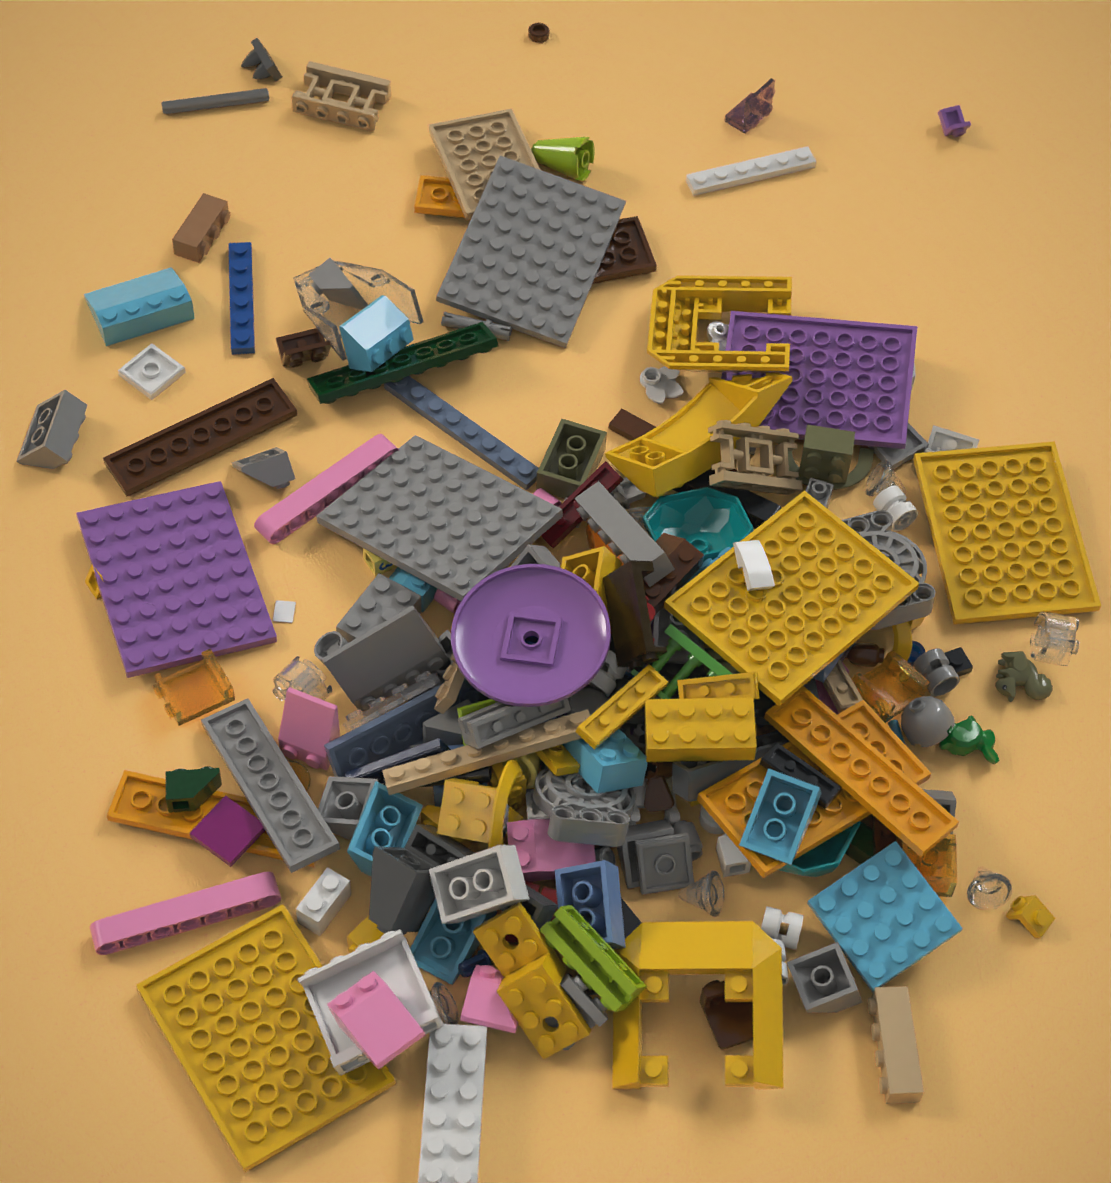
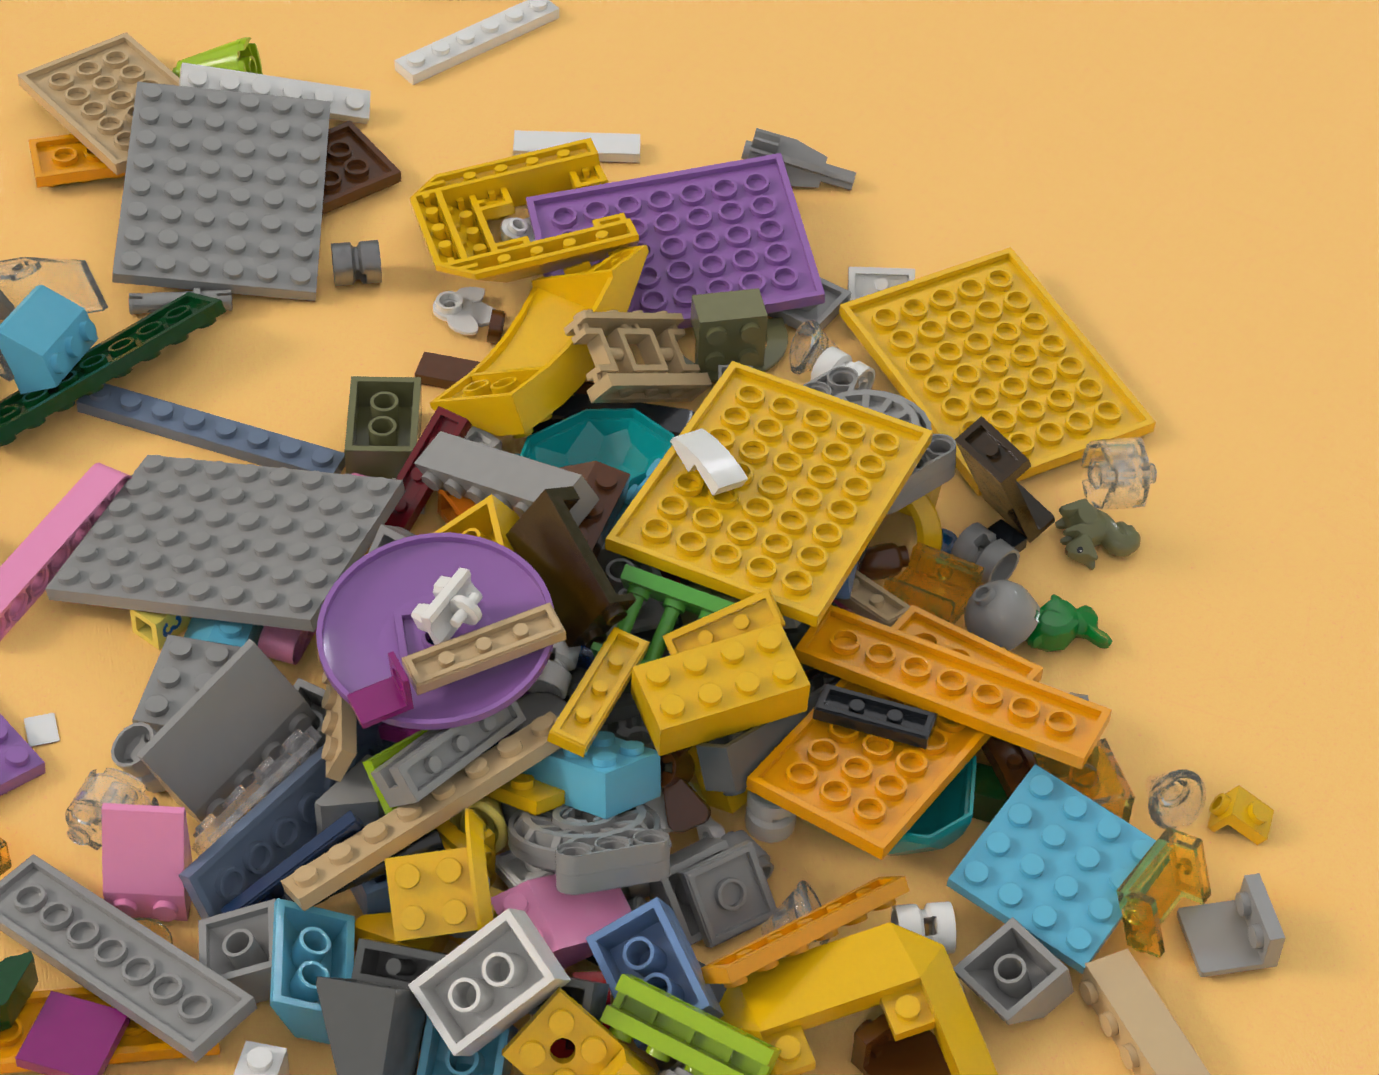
camera: 20 degrees left, 10 degrees down
(476, 675) = (383, 698): none -> magenta bracket
(542, 625) = (453, 604): none -> white hips
(553, 659) = (483, 648): none -> tan tile
(600, 329) = (356, 263): none -> flat silver wheel
(636, 200) = (345, 104): none -> white plate
(676, 402) = (496, 326): none -> reddish brown tile
(689, 910) = (795, 936): none -> light orange plate
(731, 858) = (816, 856): white brick -> none
(780, 816) = (875, 768): medium azure slope -> none
(802, 279) = (610, 146): none -> white tile
(931, 330) = (803, 164): none -> light grey piece
(945, 950) = (1165, 874): none -> clear yellow panel
(965, 626) = (995, 467): none -> dark brown panel
(985, 996) = (1235, 932): none -> light grey bracket

